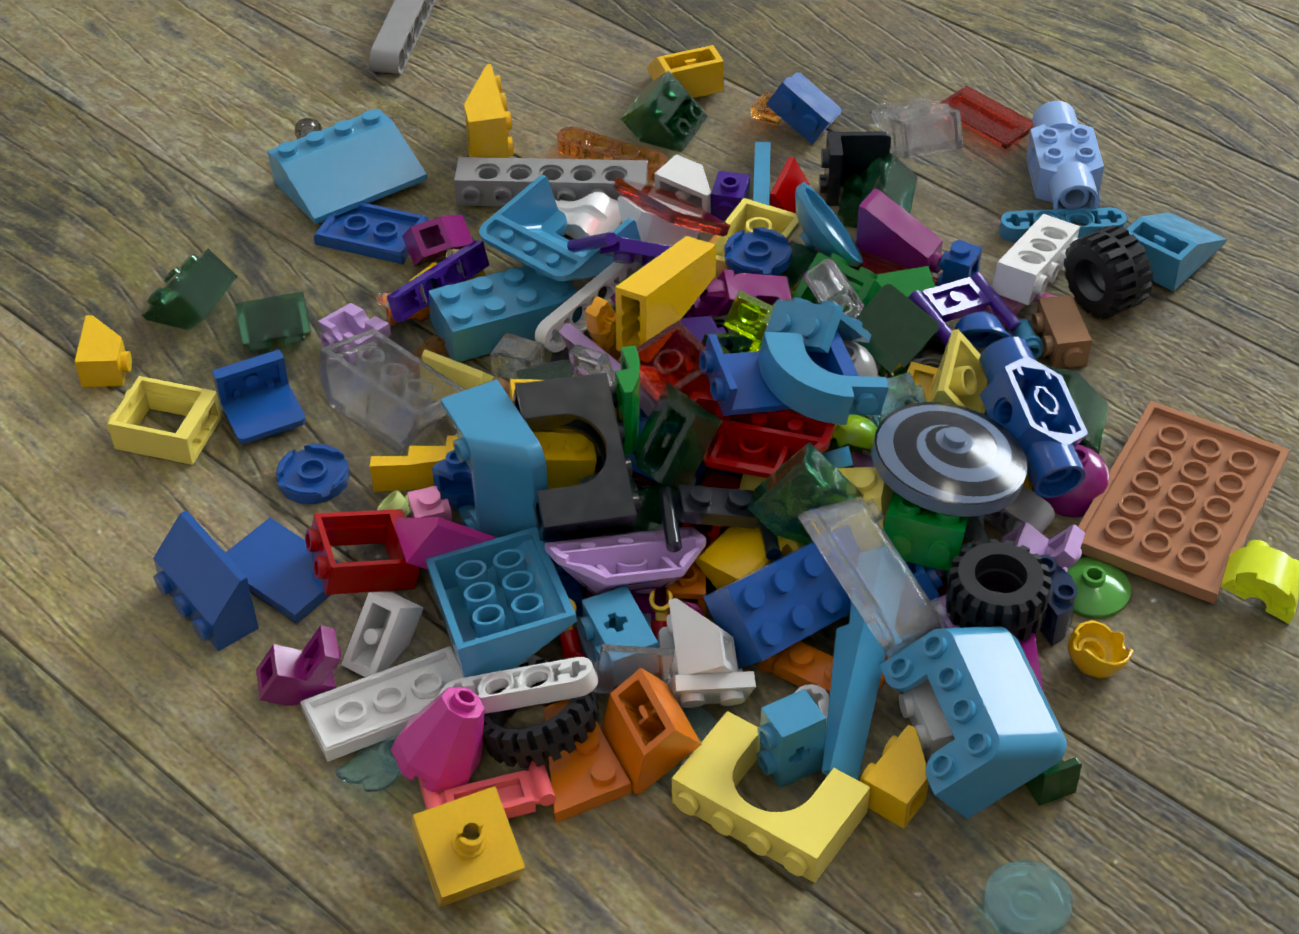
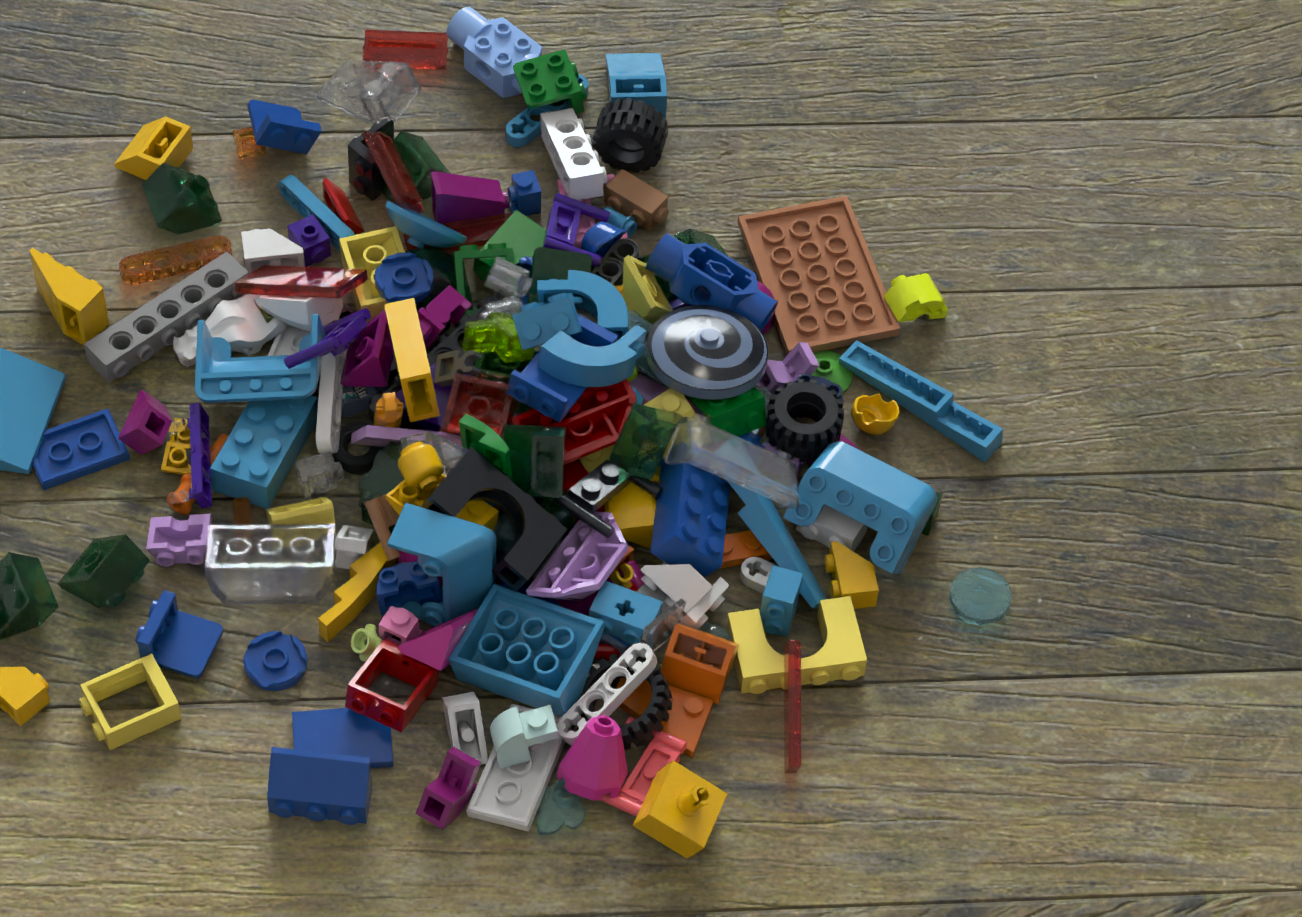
camera: 50 degrees left, 10 degrees up
(403, 663) = (516, 731): none -> light aqua brick
(557, 361) = (420, 466): none -> yellow head
(685, 840) = (792, 706): none -> clear red tile
(700, 321) = (455, 362): none -> dark grey plate
(845, 173) = (393, 171): none -> clear red piece
(887, 346) = (599, 298): none -> dark azure arch
(1080, 189) = (550, 80): none -> green bracket
(1174, 681) = (924, 400): none -> dark azure slope

